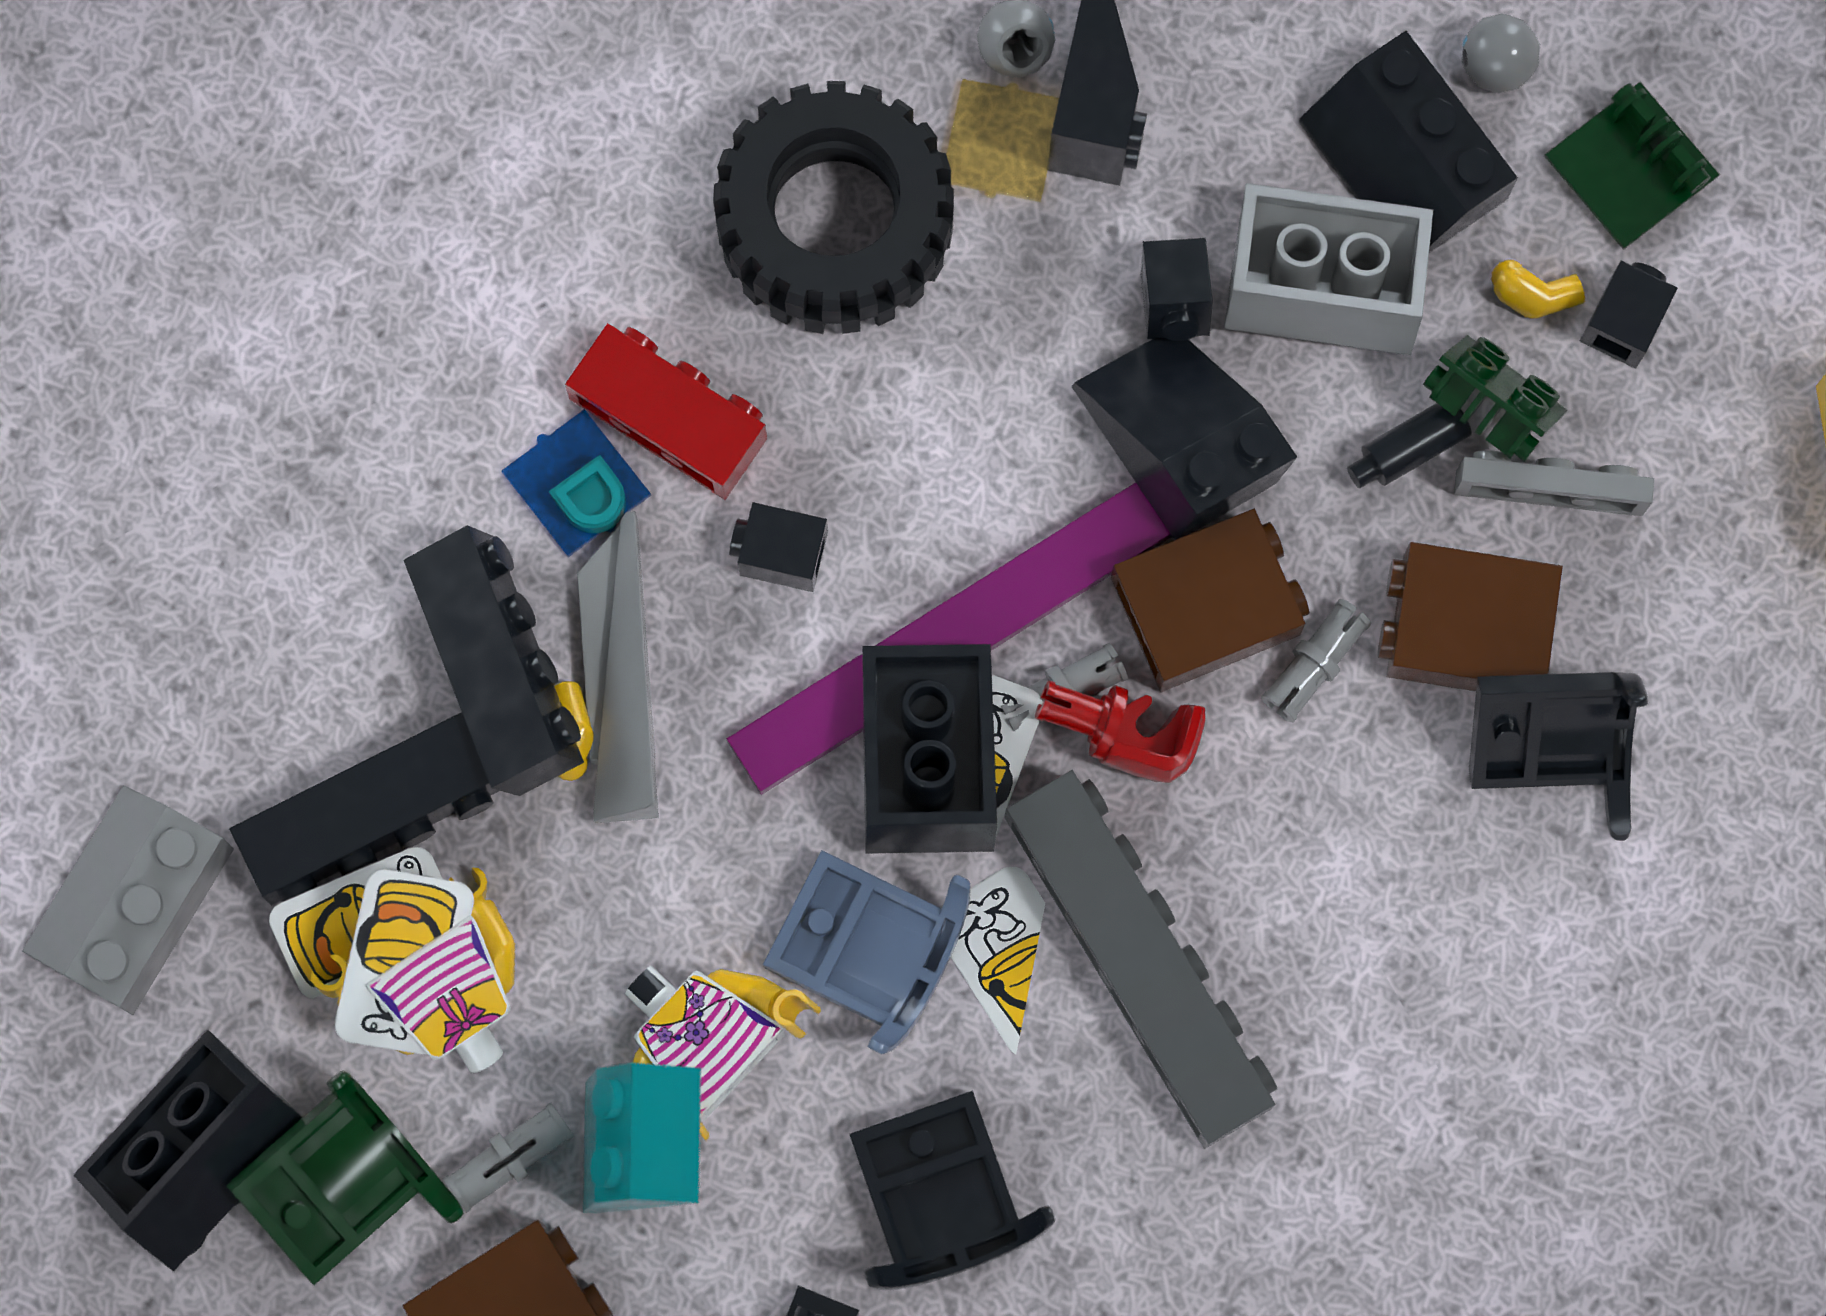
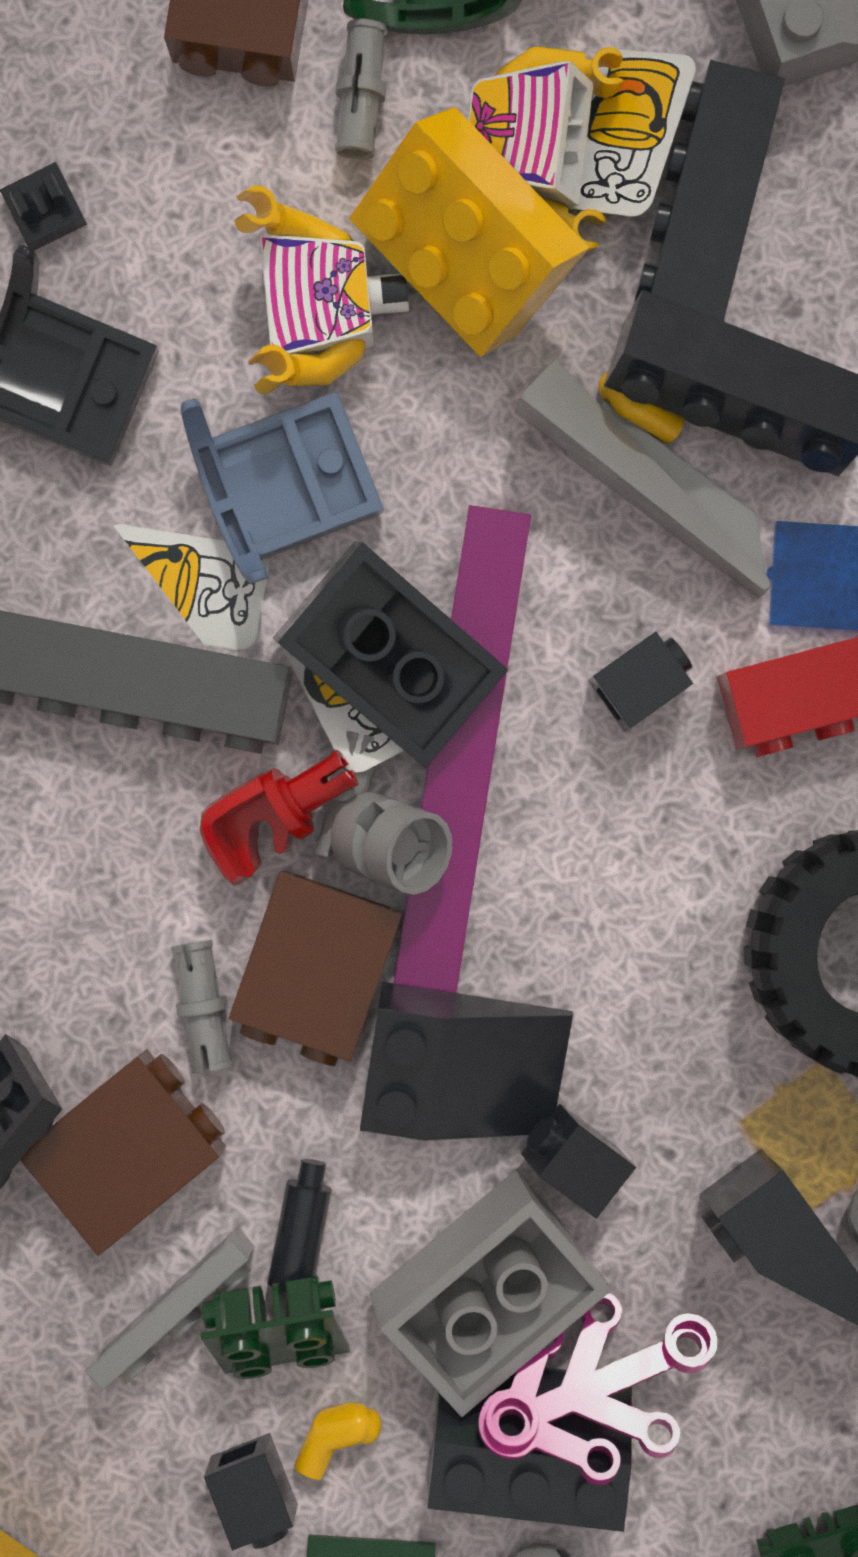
camera: 135 degrees right, 10 degrees up
(395, 919) = (601, 117): sticker -> none
(558, 960) = (467, 230): none -> yellow brick
(591, 497) = (805, 574): teal tile -> none
(641, 1137) = (270, 157): teal slope -> none
(1068, 619) = (391, 842): none -> light grey wheel
(1335, 136) = (589, 1393): none -> plant

